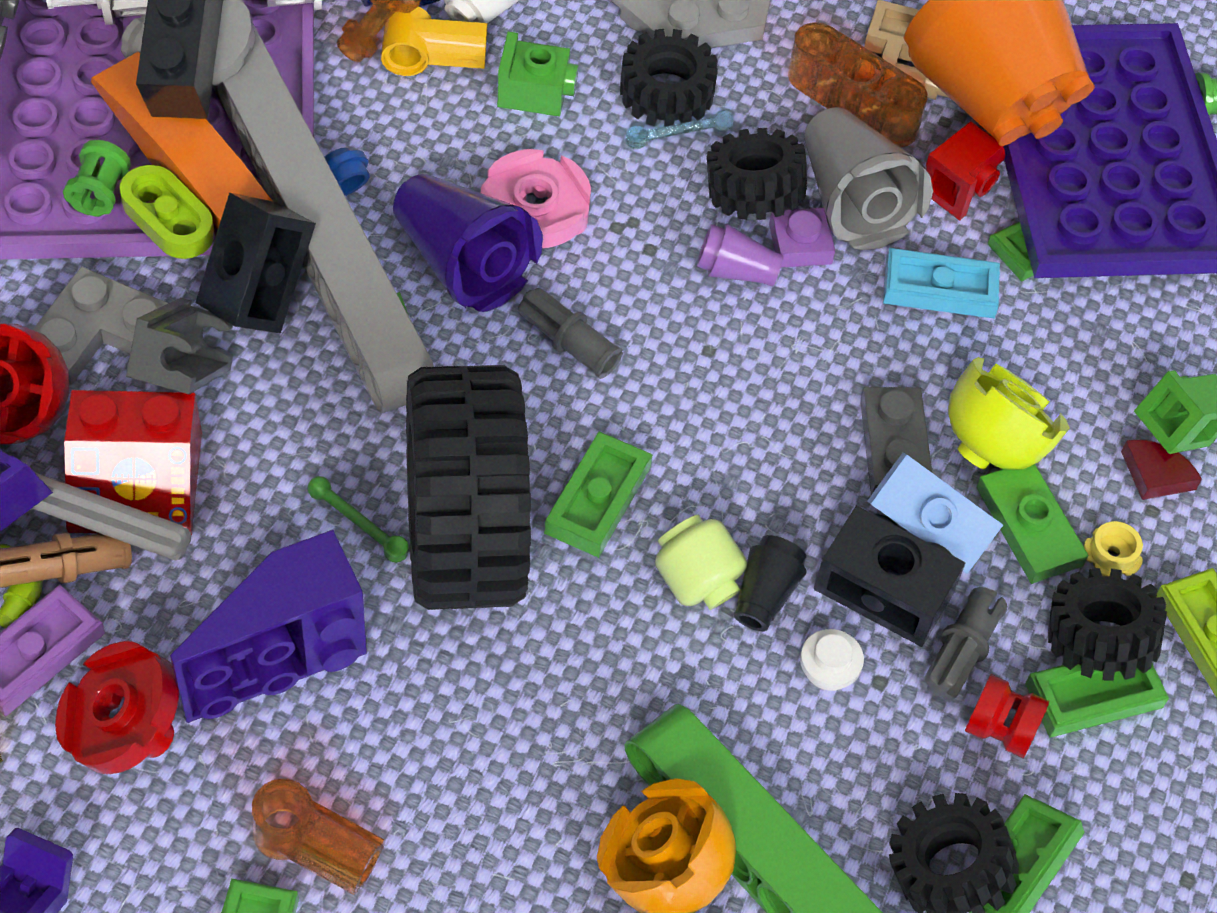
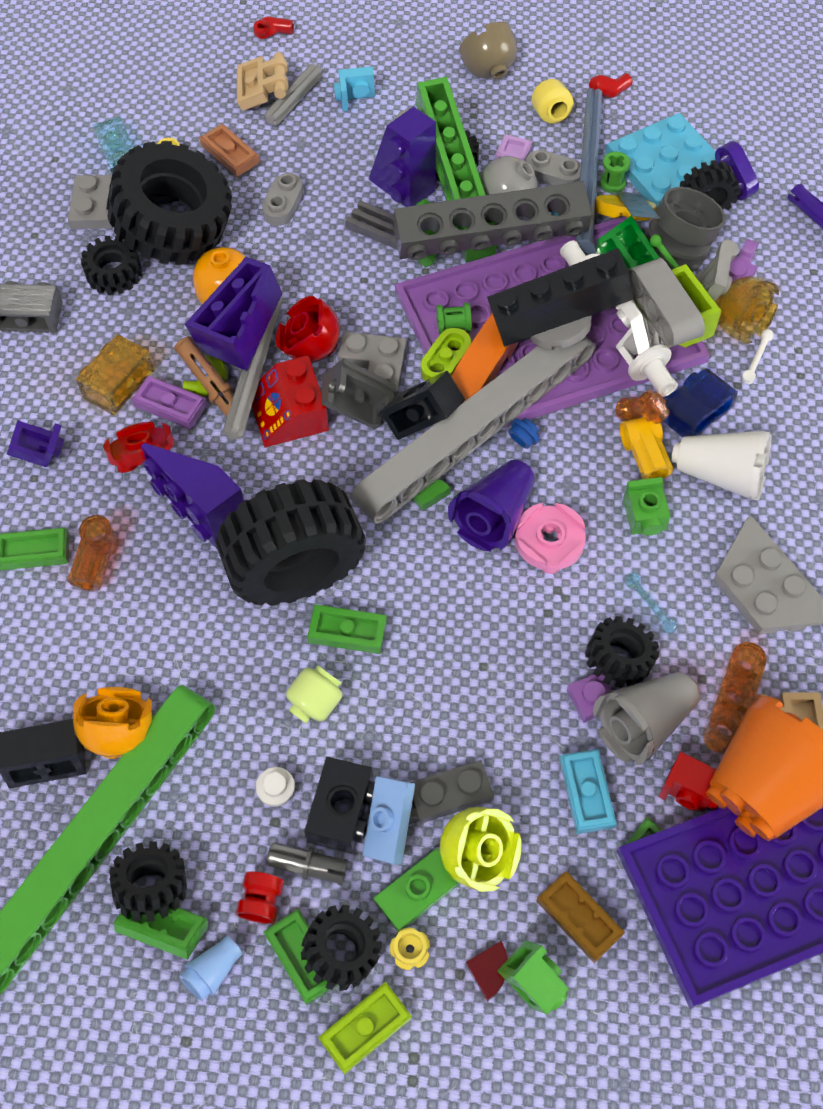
camera: 80 degrees right, 5 degrees up
(570, 332) = (458, 583): dark grey axle -> none
(674, 57) = (692, 566): black tyre -> none
(738, 257) = (553, 658): medium lavender cone -> none
(768, 581) = (317, 737): black cone -> none
(1107, 816) = (210, 968): none -> light blue cone
(1110, 346) = (580, 916): none -> pearl gold plate

